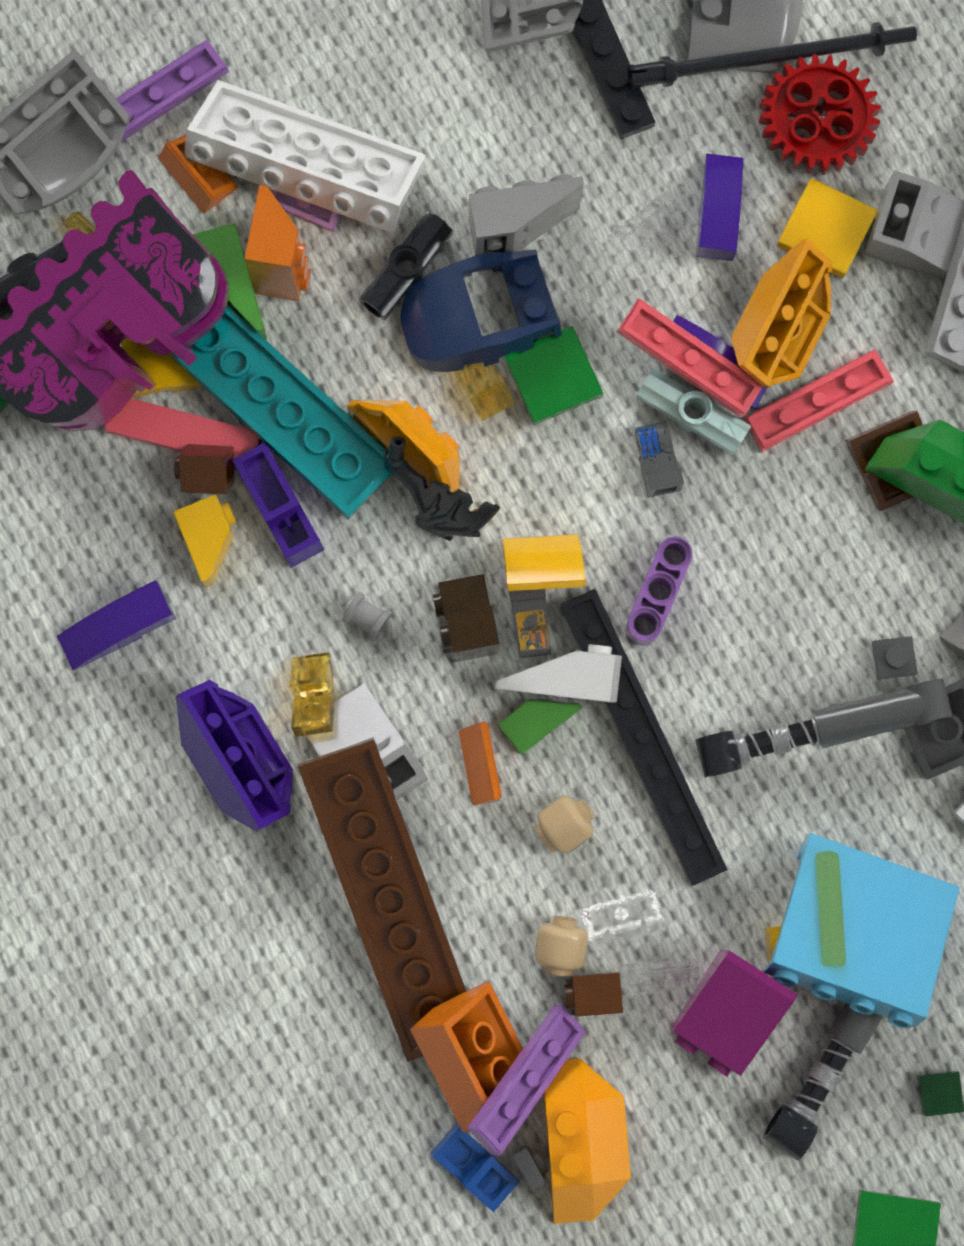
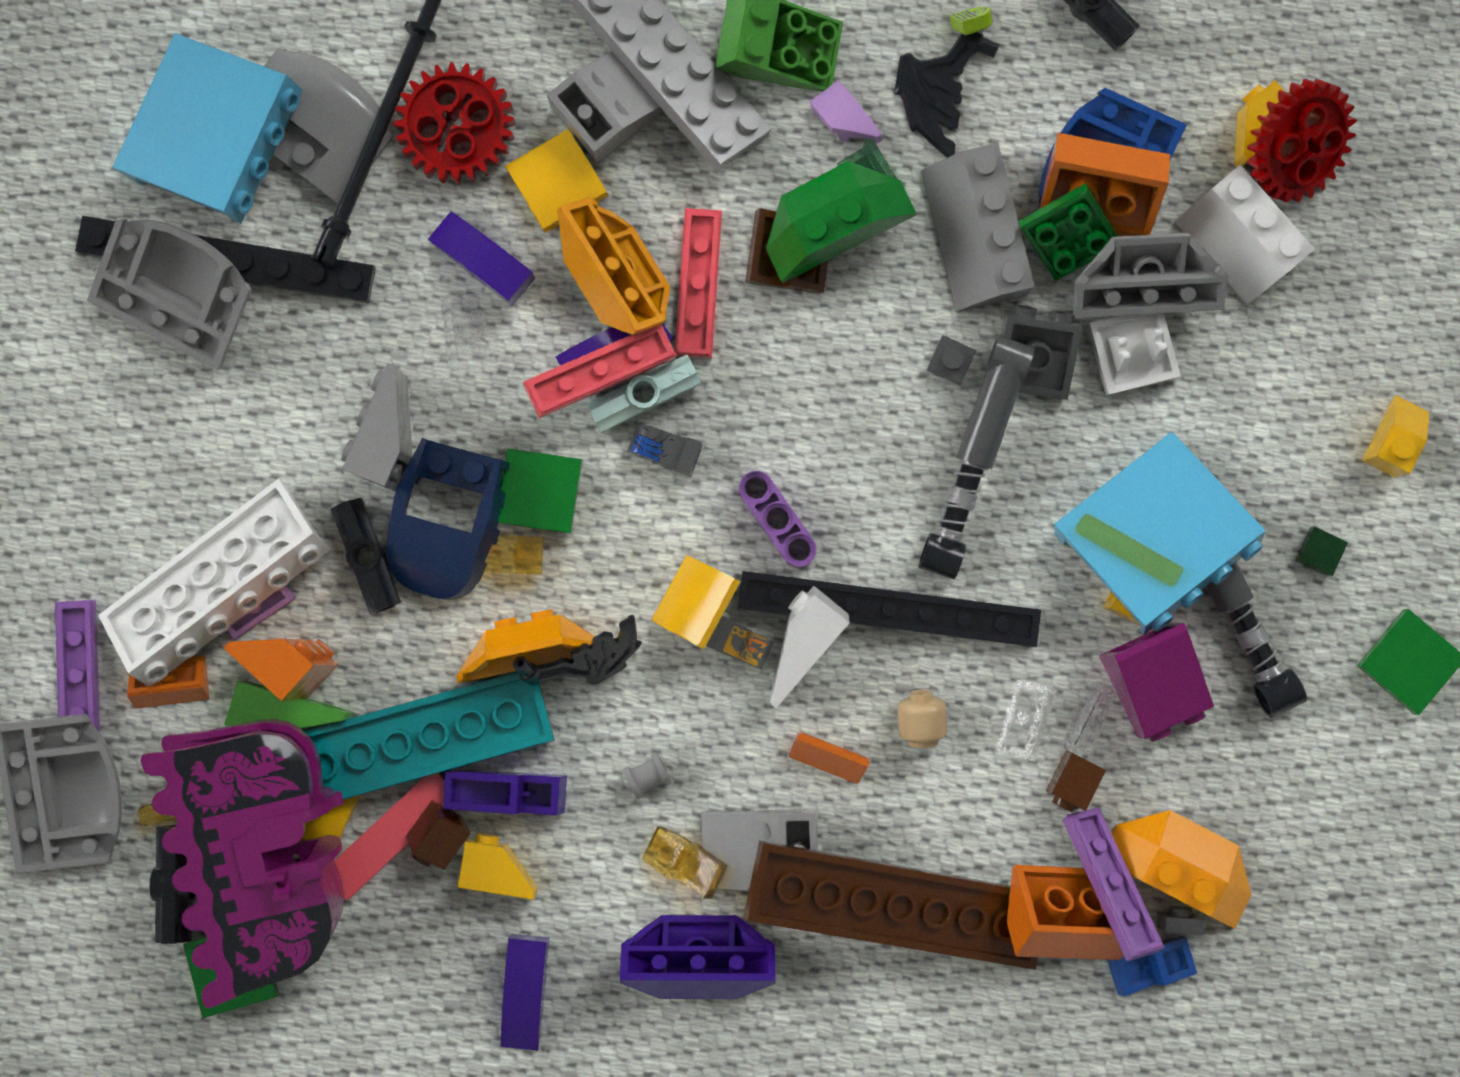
camera: 55 degrees left, 5 degrees up
(468, 617) = (701, 694): dark brown brick -> none
(535, 721) = (821, 689): bright green slope -> none
(561, 946) = (1020, 785): tan head -> none

